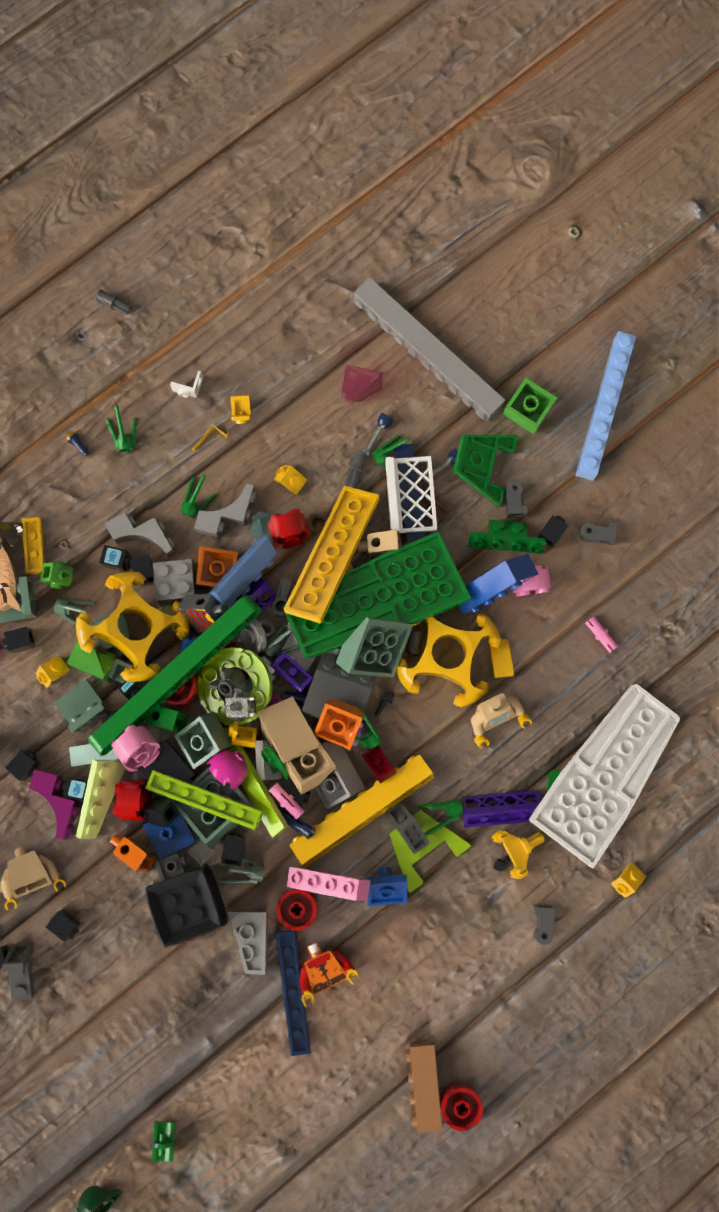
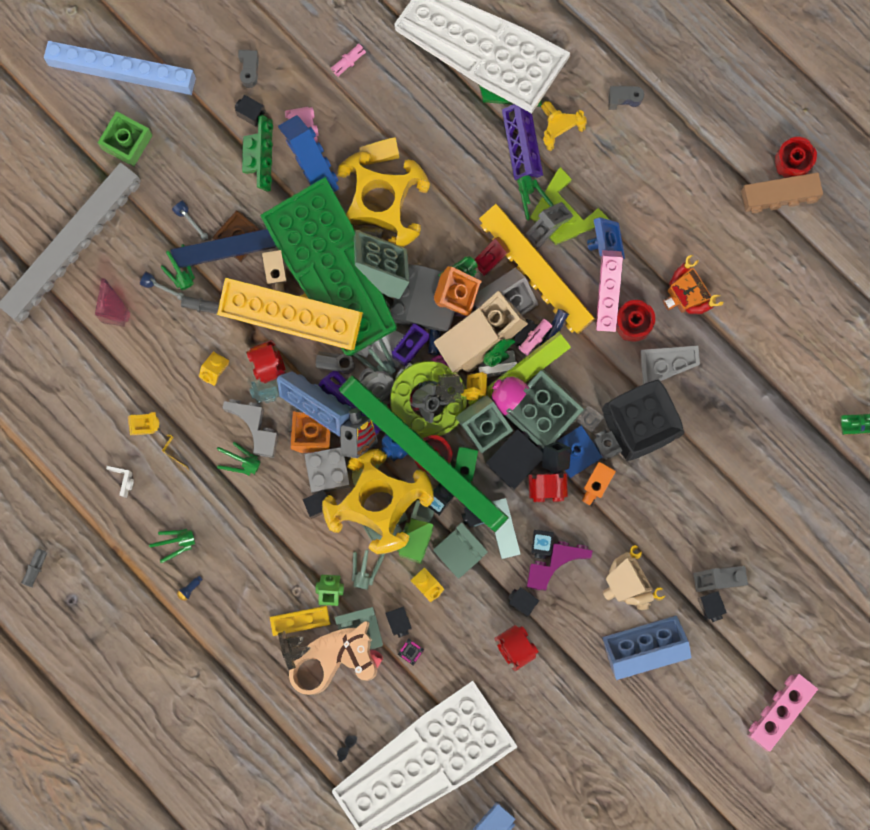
camera: 90 degrees left, 0 degrees up
(63, 925) = (673, 542): black brick -> none
(98, 796) = (541, 520): yellowish green wing -> none
(115, 558) = (308, 534): black brick -> none
(123, 529) = (277, 498): light grey arch -> none
(136, 748) = (497, 484): bright pink brick -> none
(204, 800) = (541, 414): lime tile -> none
(233, 849) = (585, 386): black brick -> none
(254, 872) = (604, 365): sand green plant -> none
(292, 994) = (711, 320): dark blue tile -> none
(387, 697) = (426, 256): black hand -> none
(394, 494) = (223, 262): white fence -> none
(476, 461) = (185, 186): green wing -> none
(495, 712) = (433, 152): tan torso -> none
(501, 865) = (575, 138): black hand -> none
(513, 500) = (221, 149): dark grey leg -> none
(629, 880) = (577, 23): yellow bracket -> none

